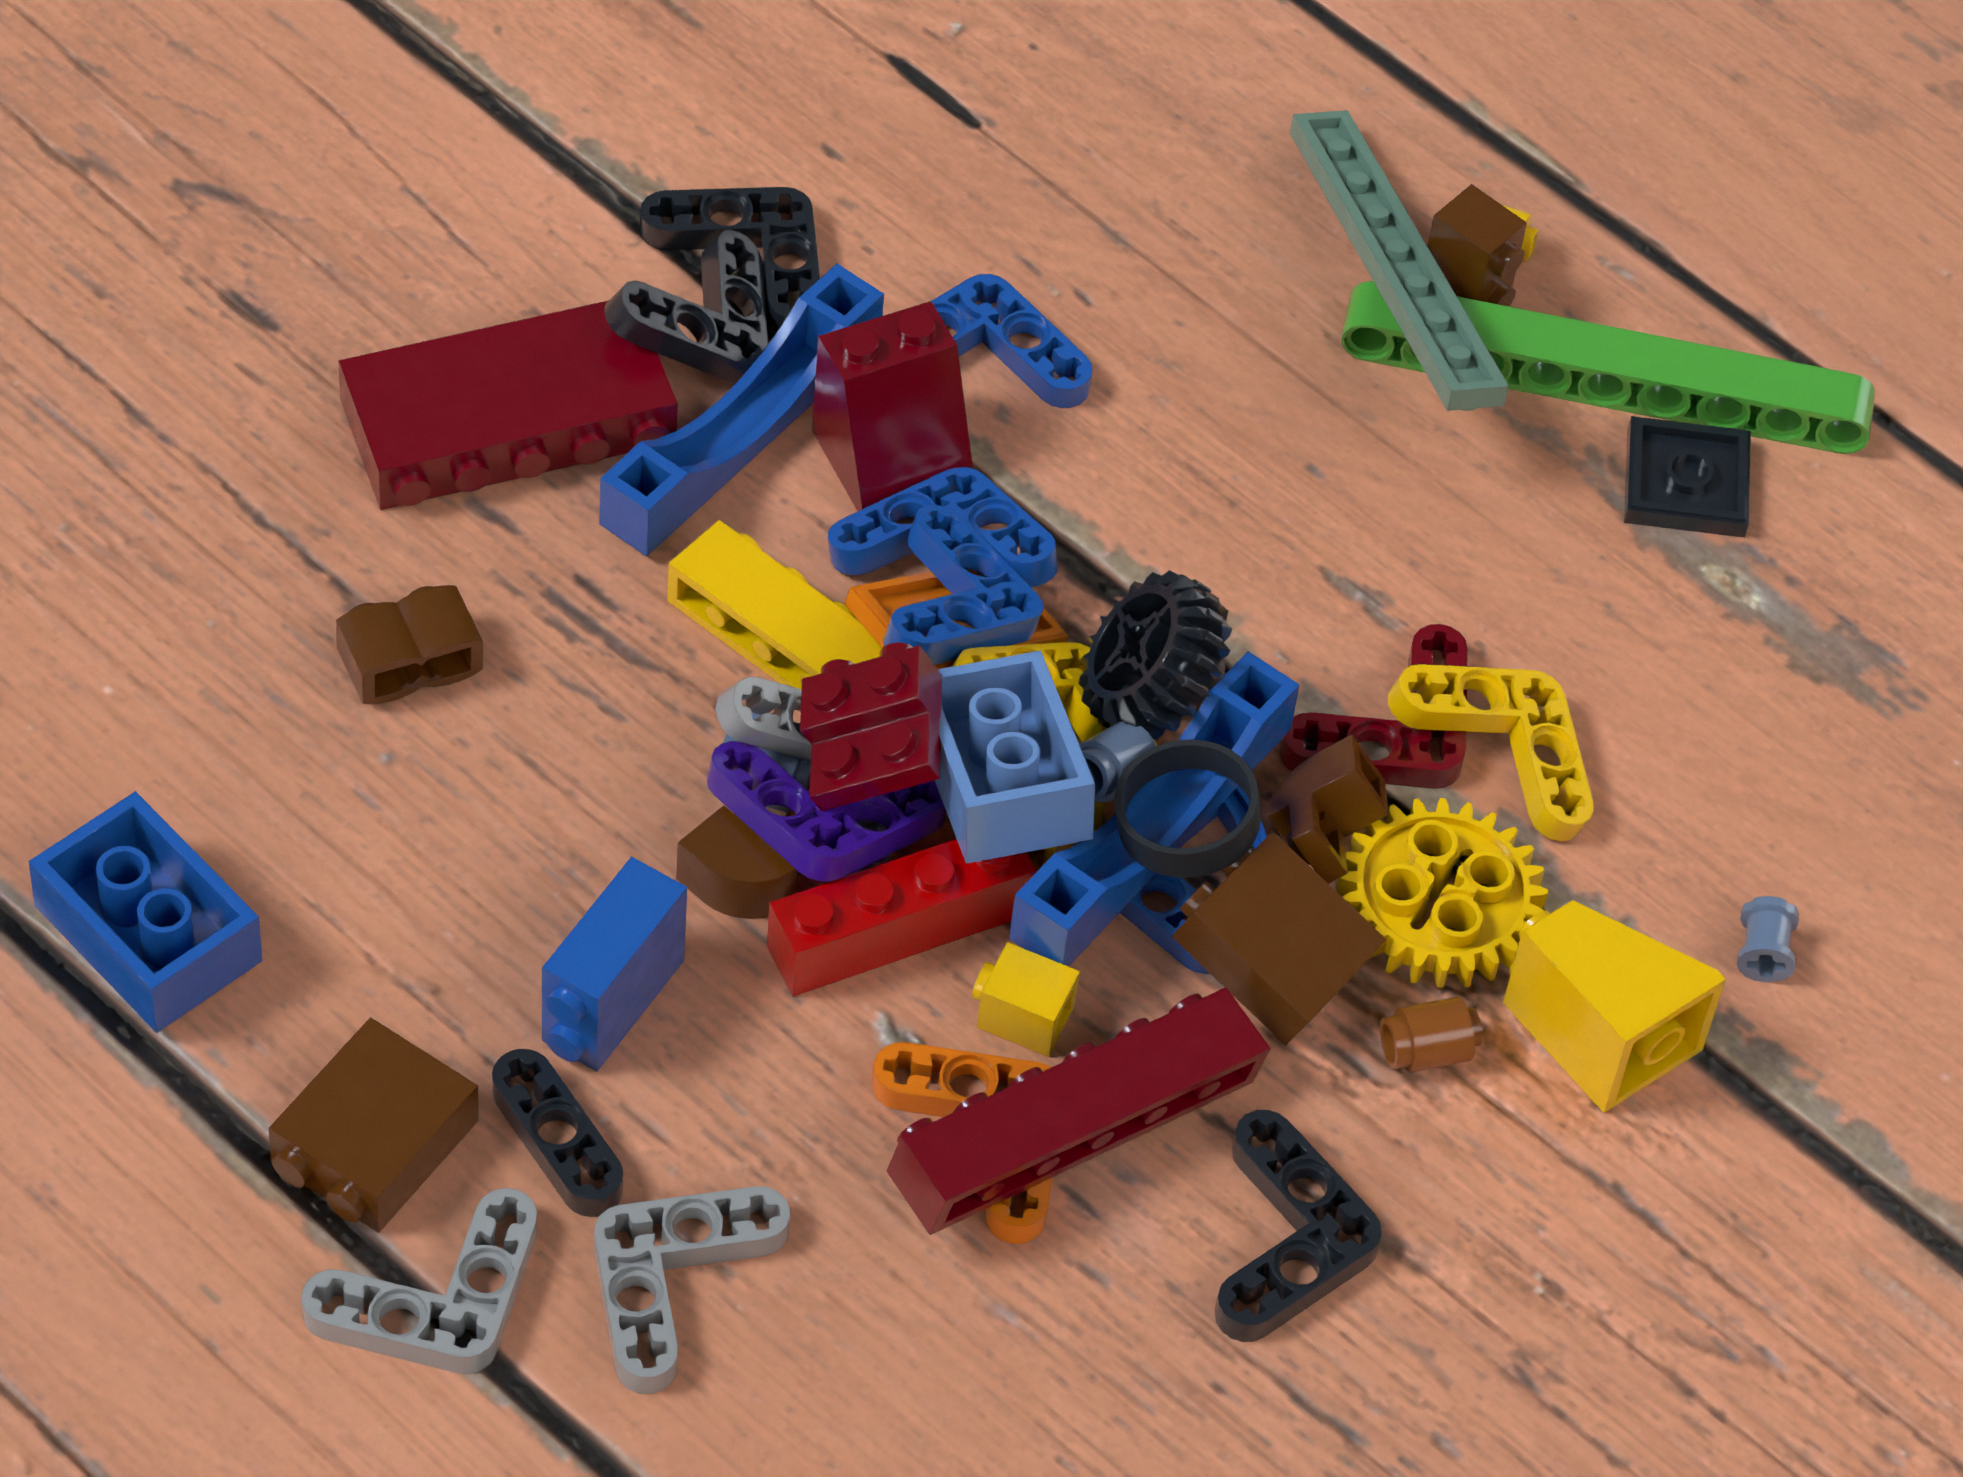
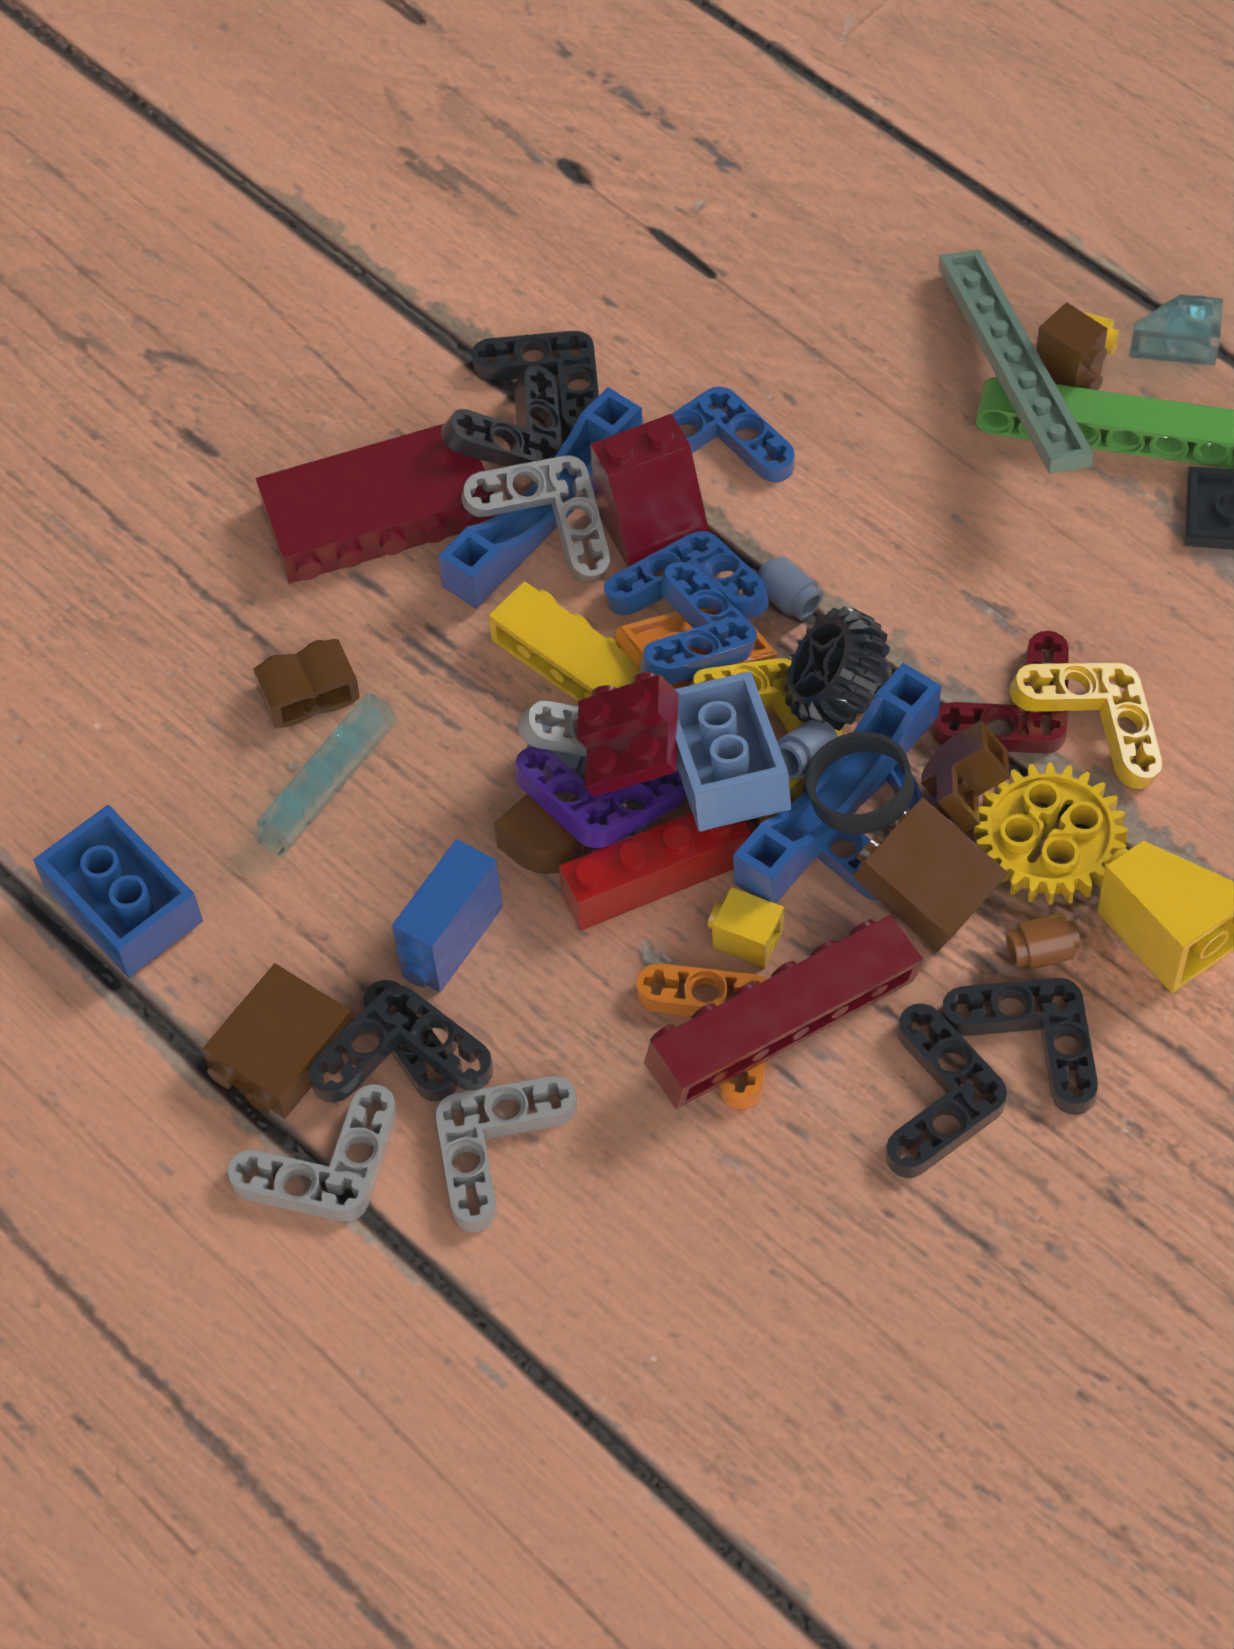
camera: 10 degrees right, 5 degrees up
(436, 769) = (325, 774): none -> clear light blue brick
(534, 1118) = (391, 1033): none -> black beam
(752, 401) = (548, 492): none -> light grey beam
(1087, 550) = (790, 588): none -> sand blue brick
(1440, 1141) = (1051, 1022): none -> black beam
(1621, 236) = (1180, 331): none -> clear light blue slope

